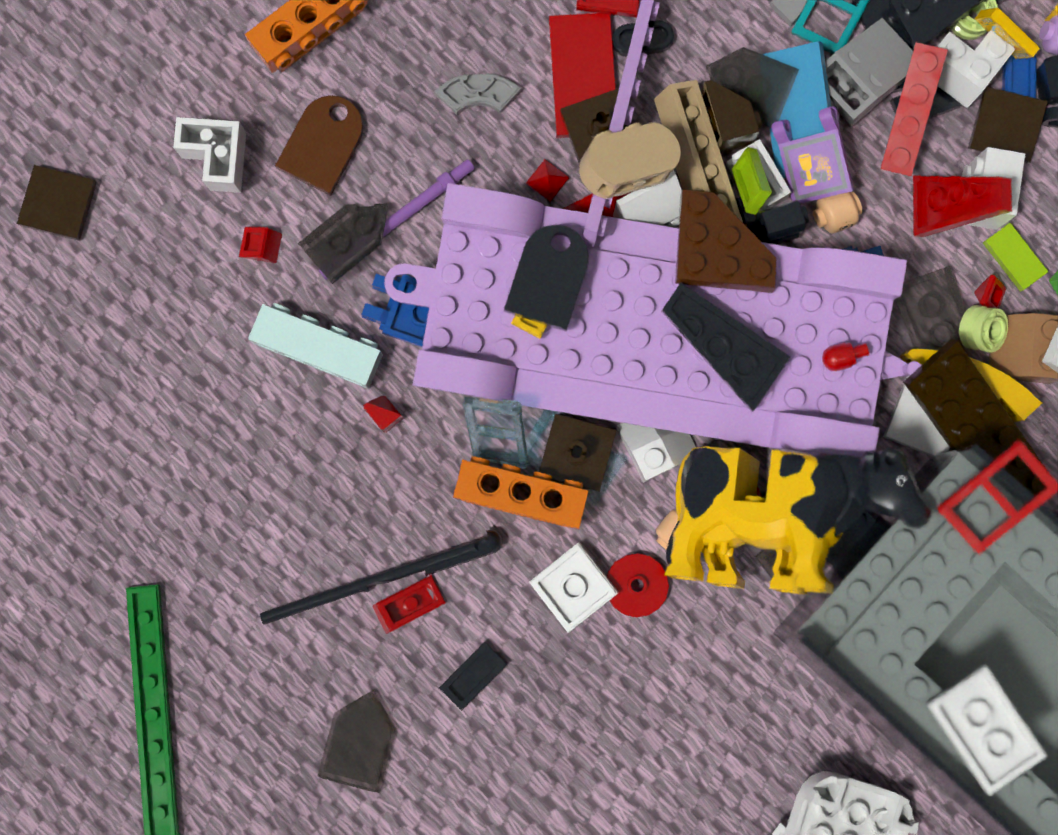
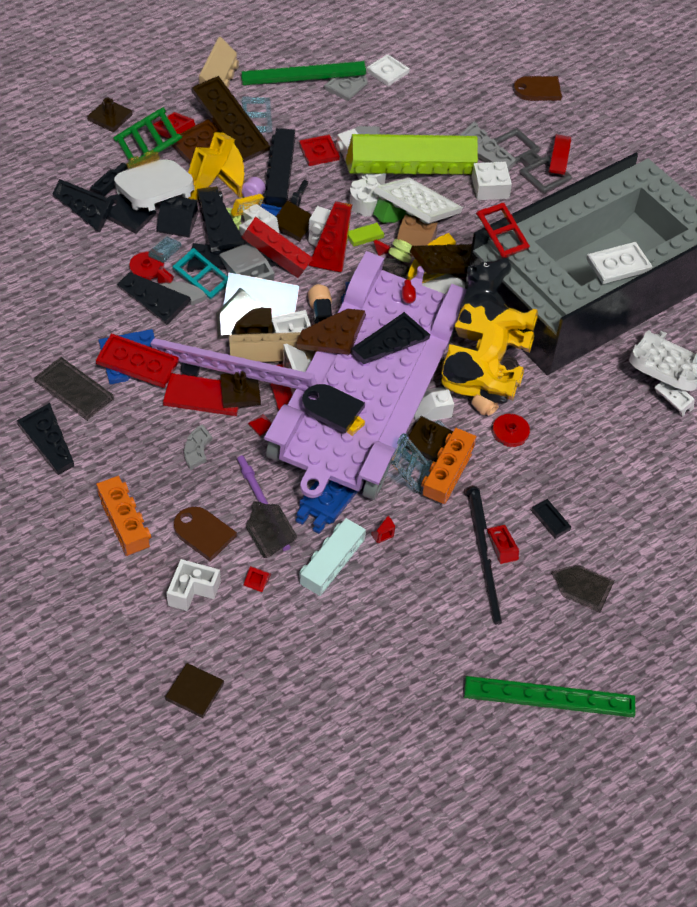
camera: 80 degrees left, 30 degrees down
(573, 587) = (507, 457): white tile -> none
(629, 159) = (275, 354): tan brick -> none
(751, 180) = (295, 322): lime tile -> none
(817, 163) = (293, 294): medium lavender flag -> none

